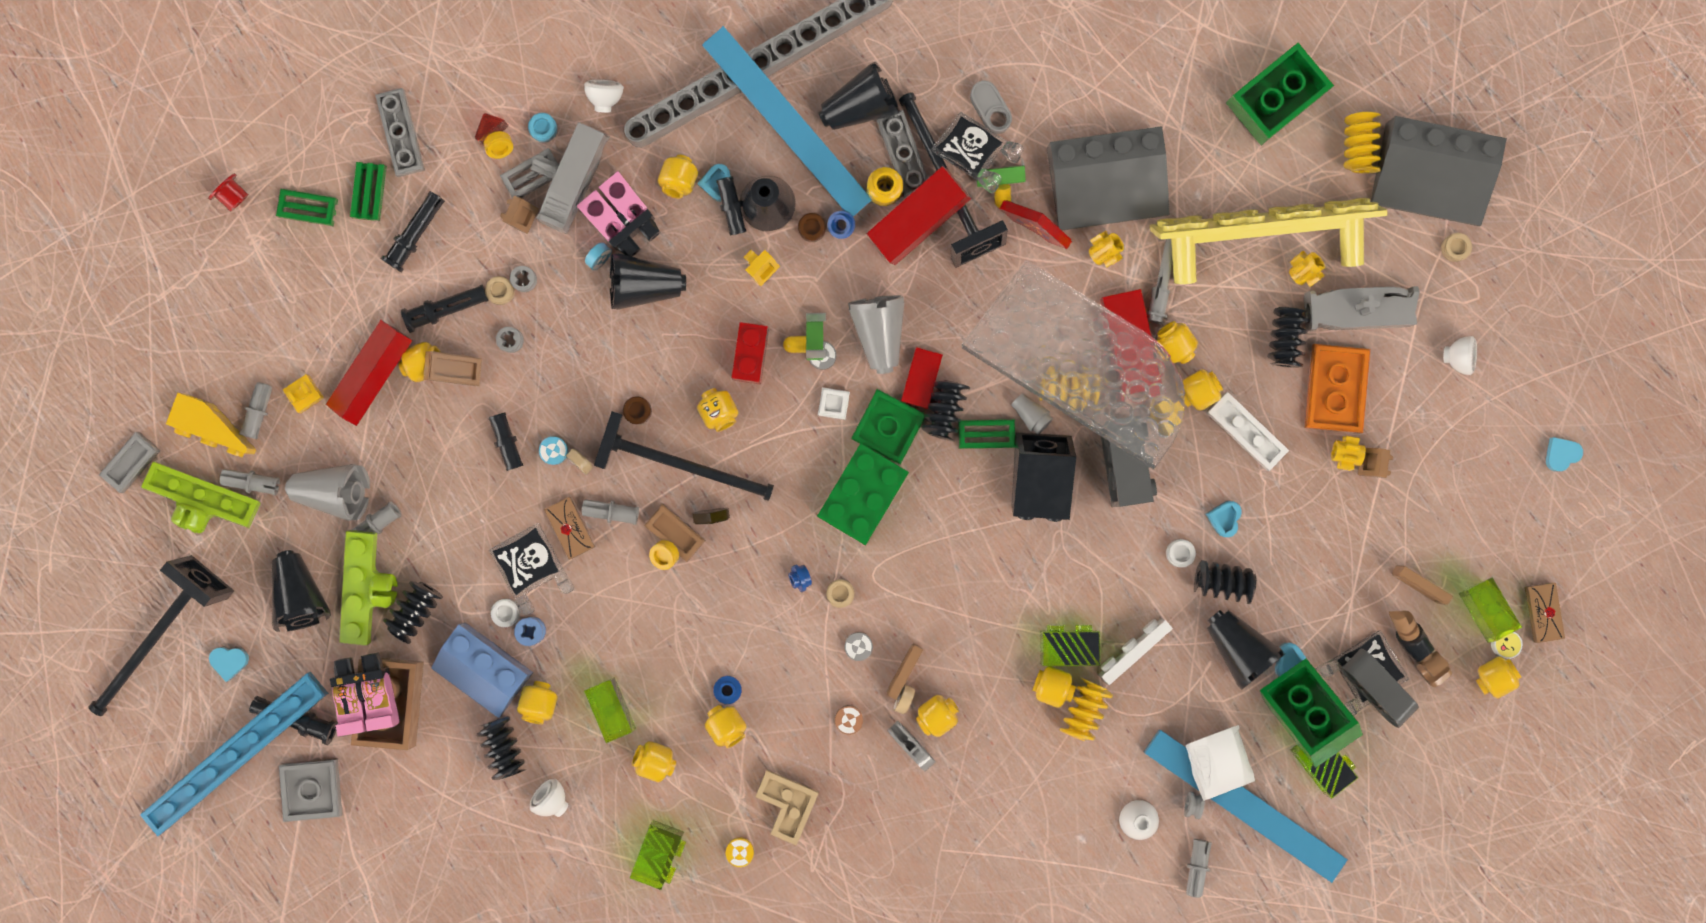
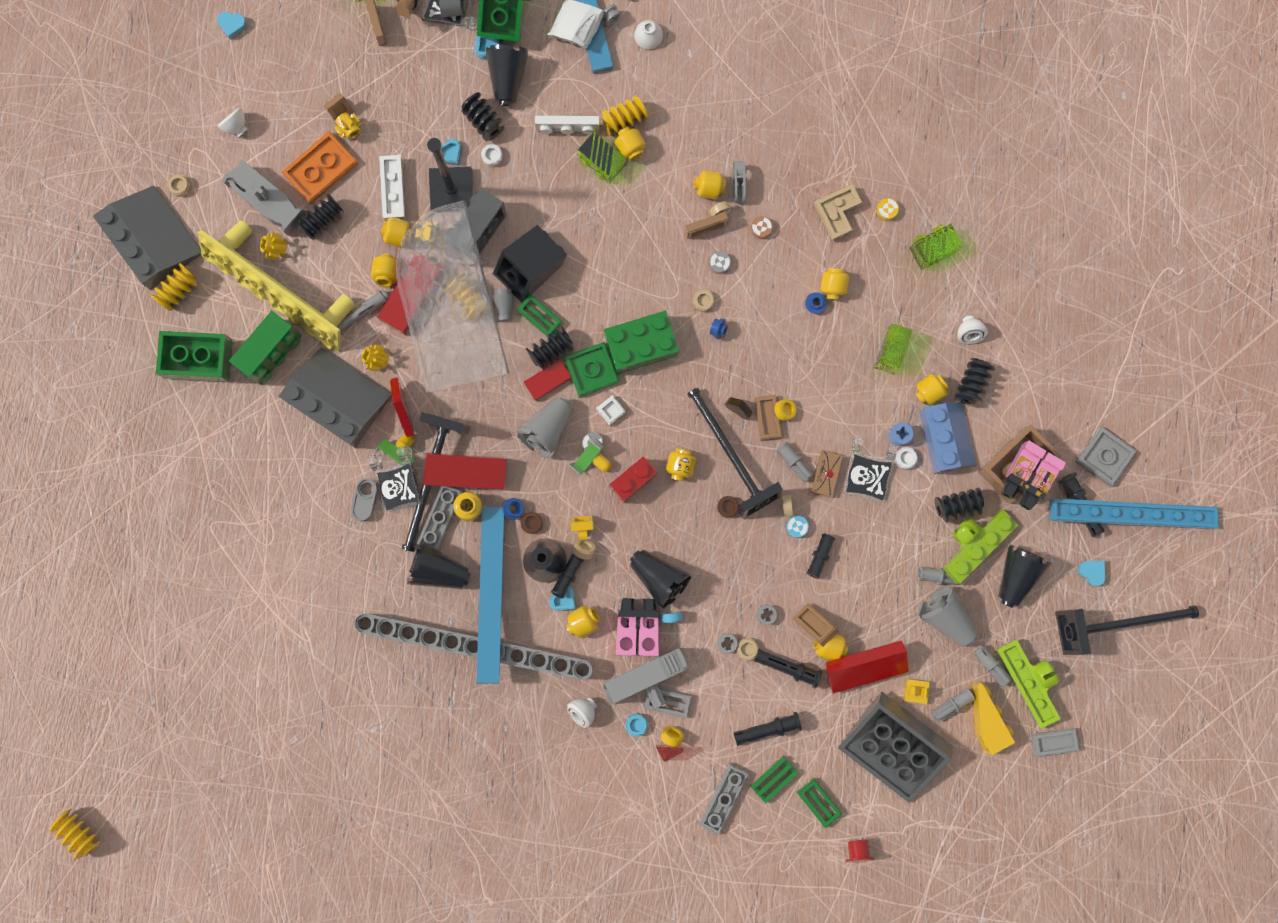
camera: 145 degrees left, 5 degrees down
(276, 323) = (896, 747): none -> dark grey slope
(520, 214) = (696, 682): medium nougat tile -> none
(653, 761) = (893, 299): yellow head -> none
(737, 245) = (584, 549): none -> tan tile
(1191, 483) = (448, 183): none -> black tile
(1217, 162) = (266, 348): none -> green brick

